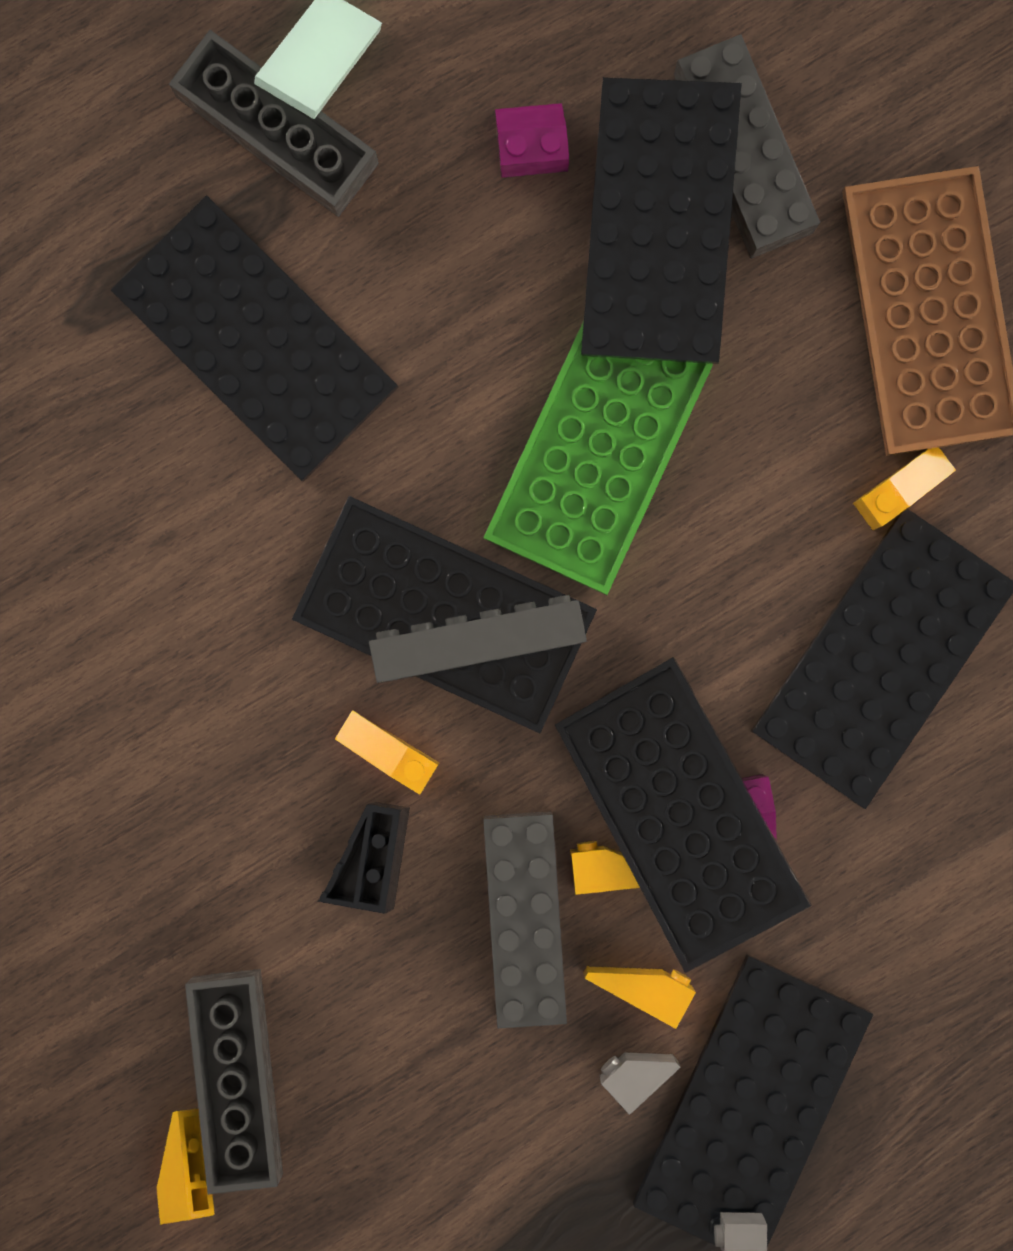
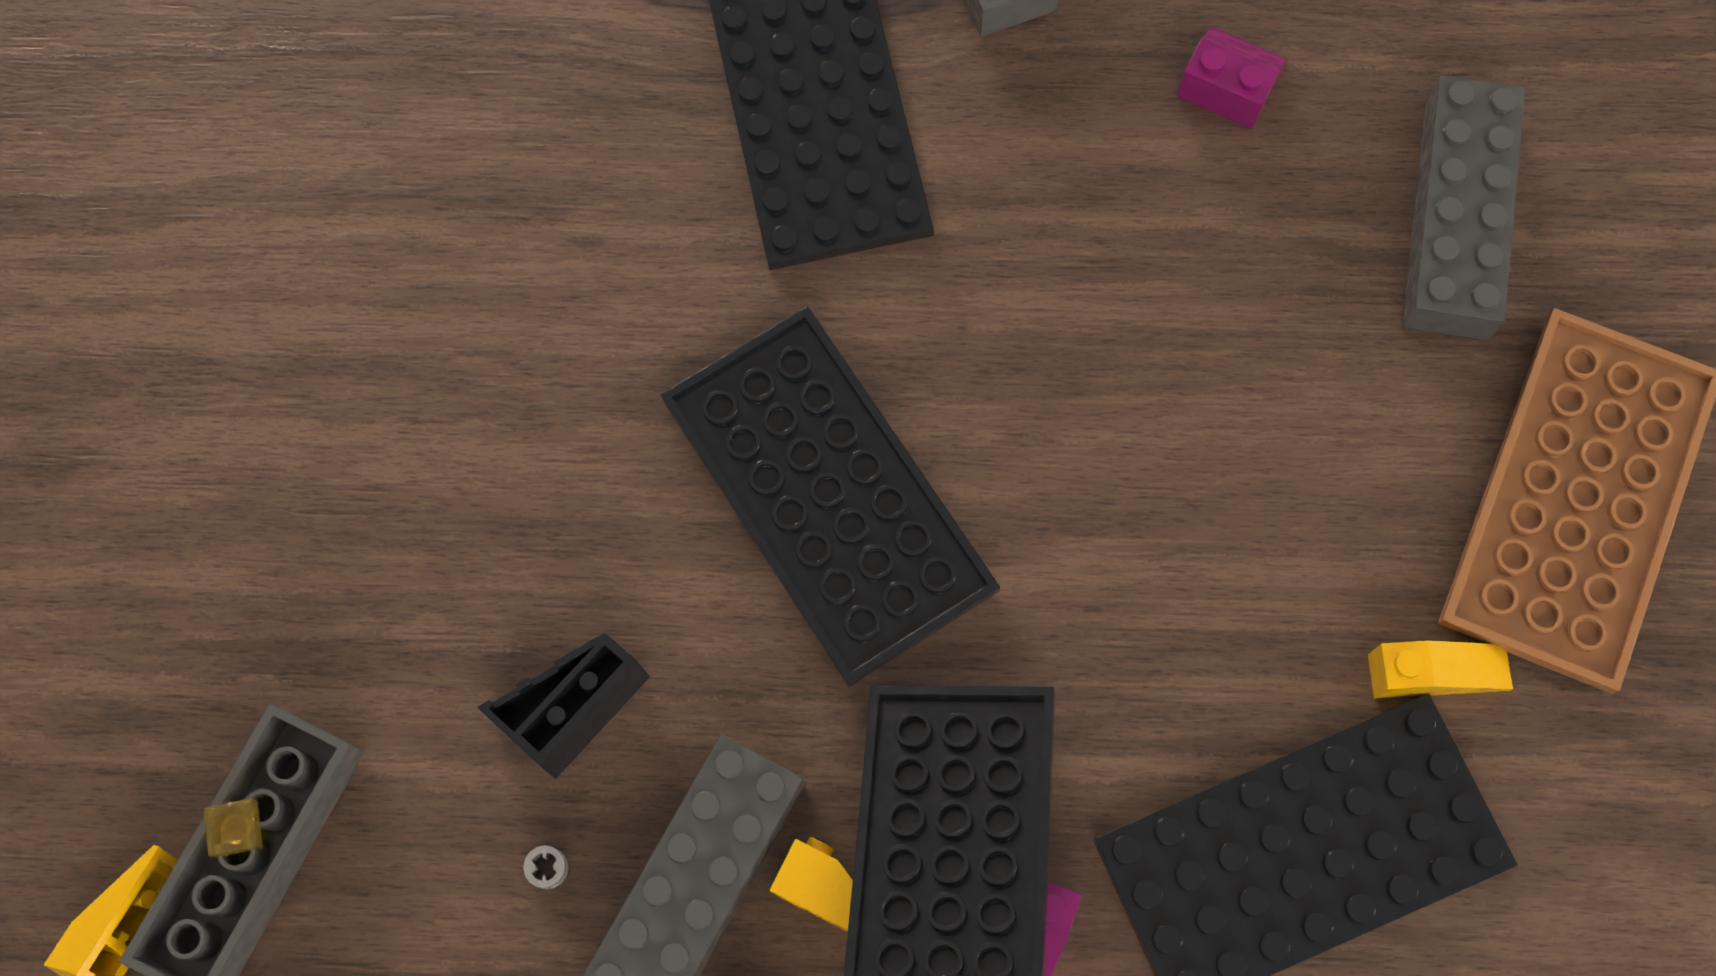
camera: 35 degrees right, 15 degrees down
(221, 1075) = (232, 828): none -> clear yellow plate
(387, 752) = (667, 602): yellow slope -> none
(434, 960) = (531, 867): none -> light grey bush
(477, 641) = (844, 527): dark grey brick -> none
(595, 463) = (1116, 418): bright green plate -> none
(661, 219) = (1324, 222): black plate -> none

